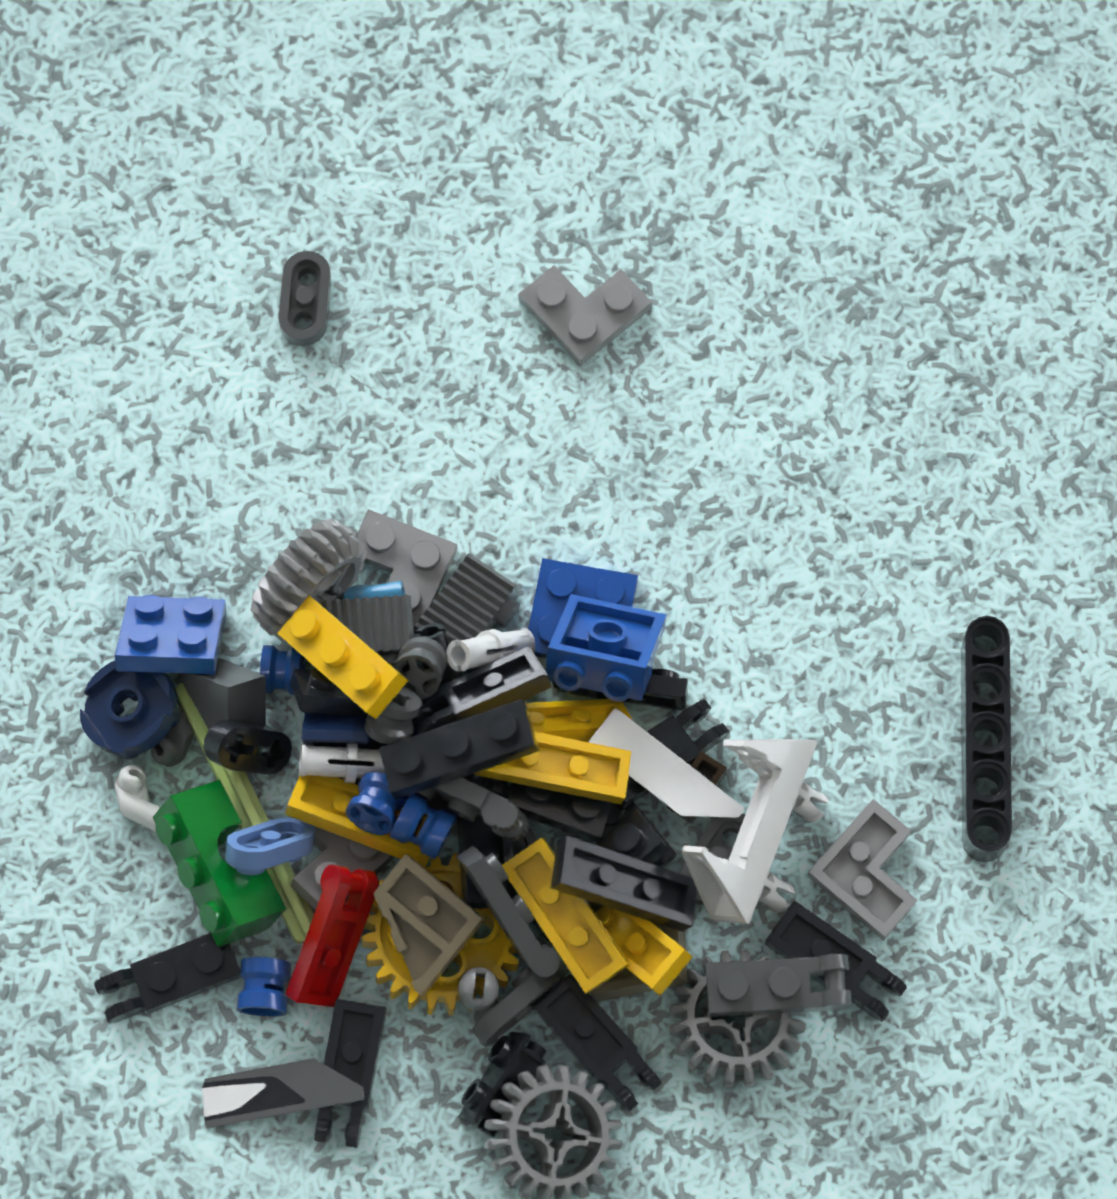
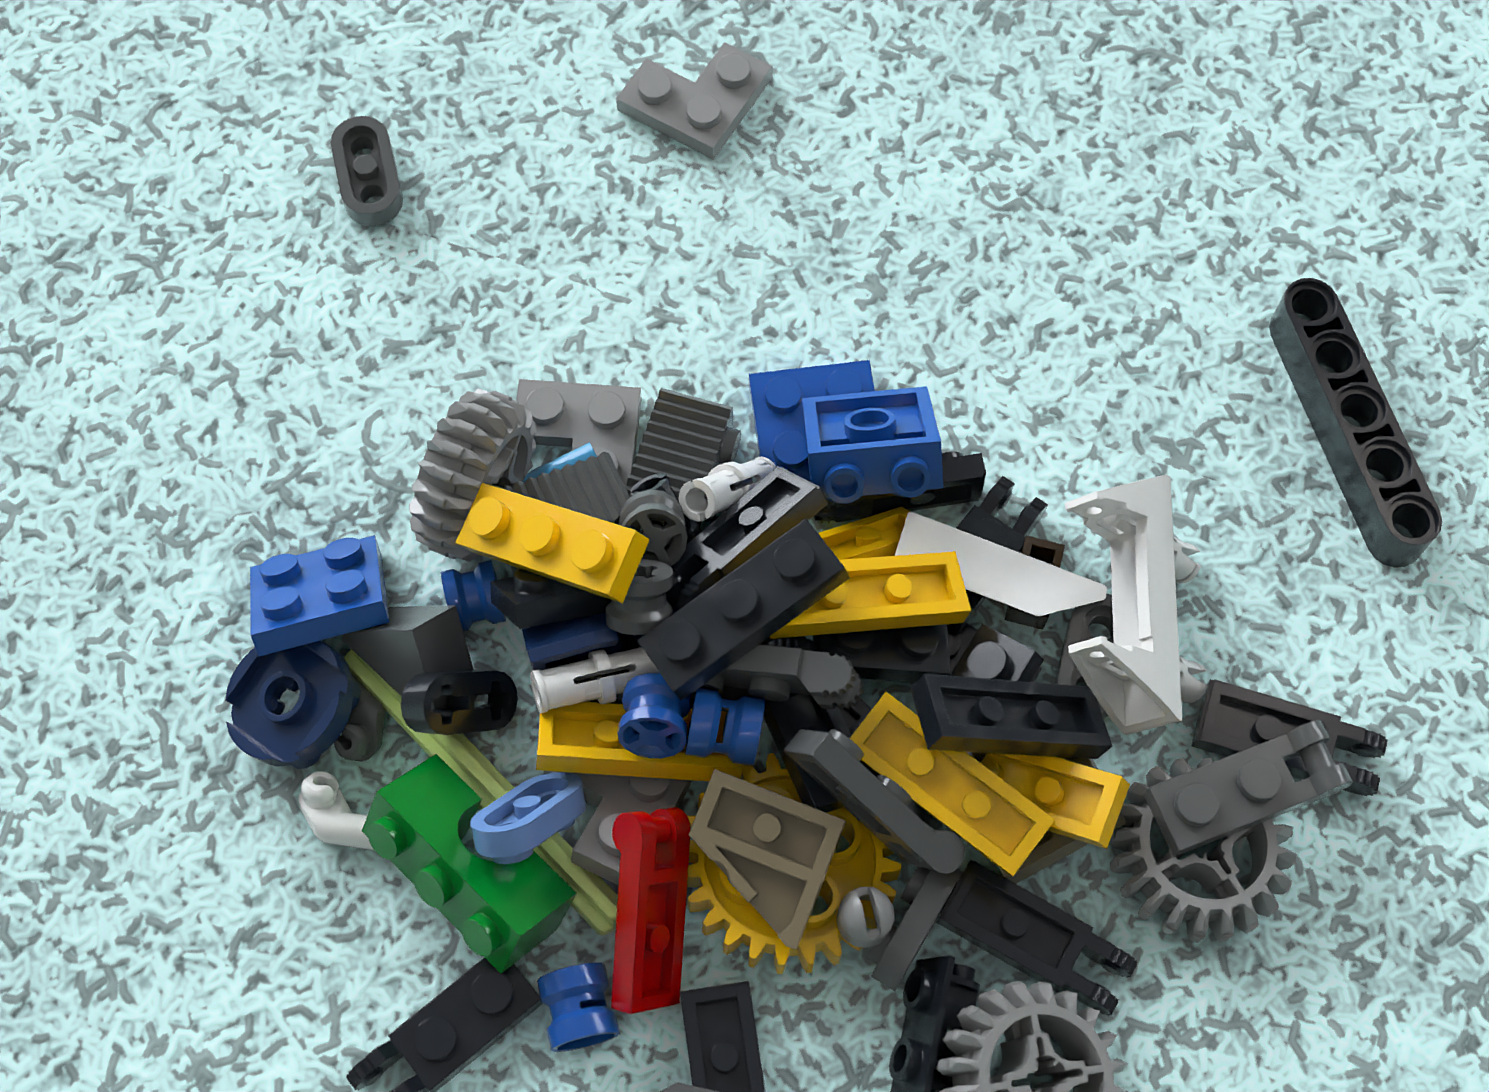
camera: 20 degrees left, 5 degrees down
(853, 871) = (1267, 628): light grey plate -> none

